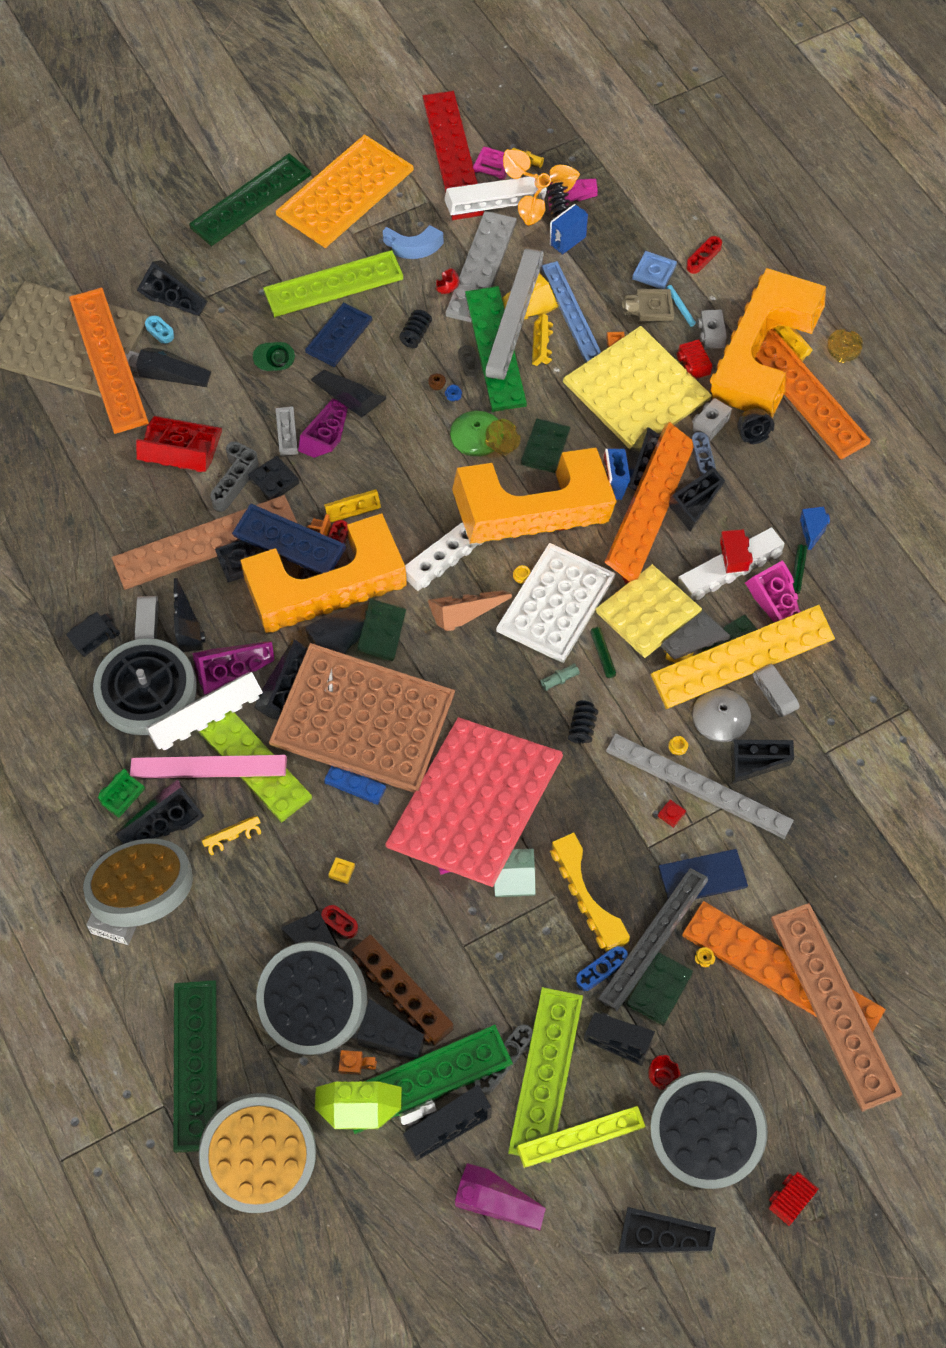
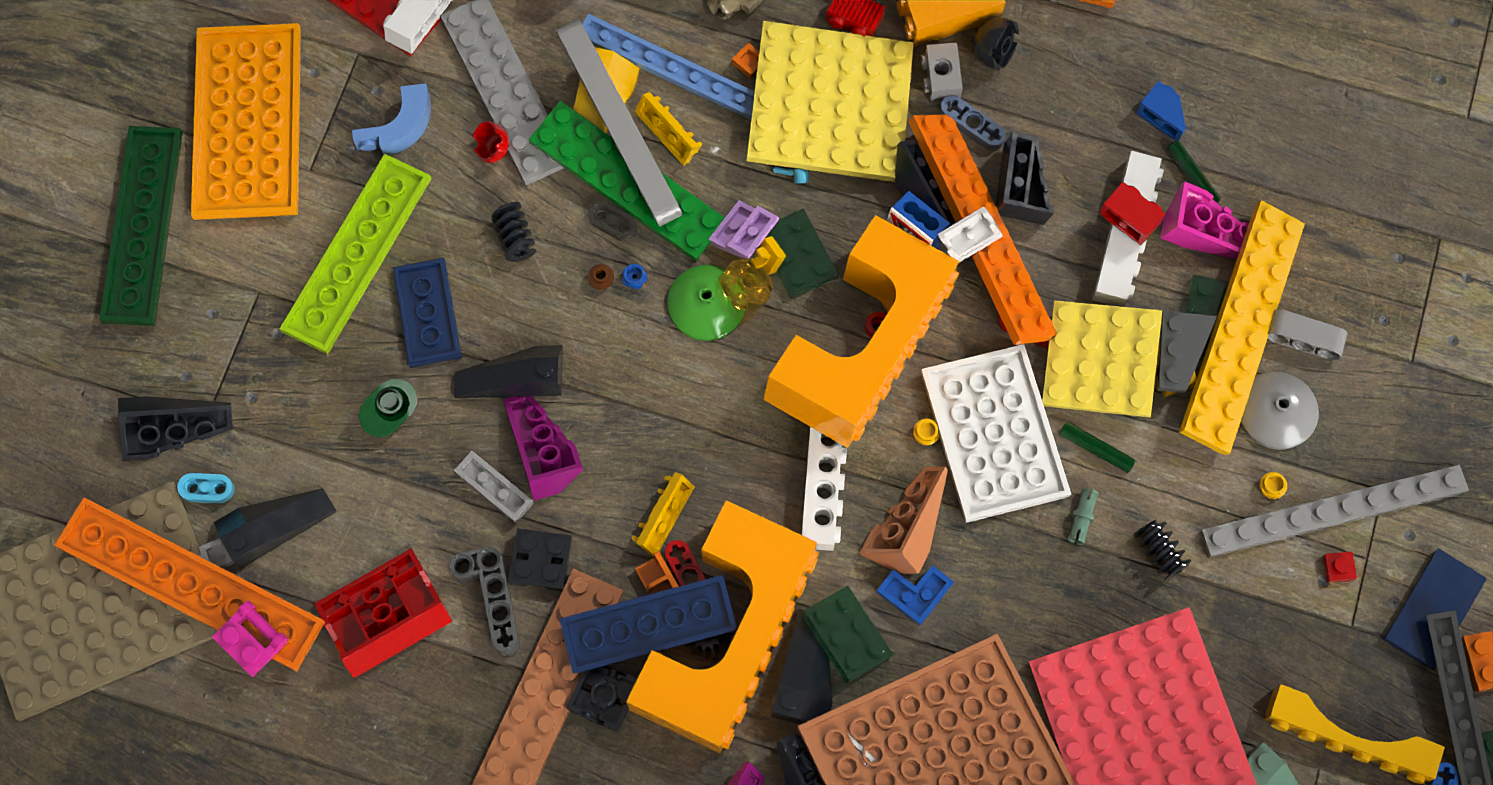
camera: 45 degrees left, 10 degrees up
(102, 400) = (243, 645): none -> dark pink plate
(435, 644) = (917, 600): none -> blue plate
(527, 432) = (768, 256): none -> yellow tile
(528, 411) = (743, 230): none -> lavender slope
(585, 411) = (800, 175): none -> medium azure hand
(635, 491) = (970, 234): none -> white hinge
(759, 757) = (1367, 428): black wedge -> none

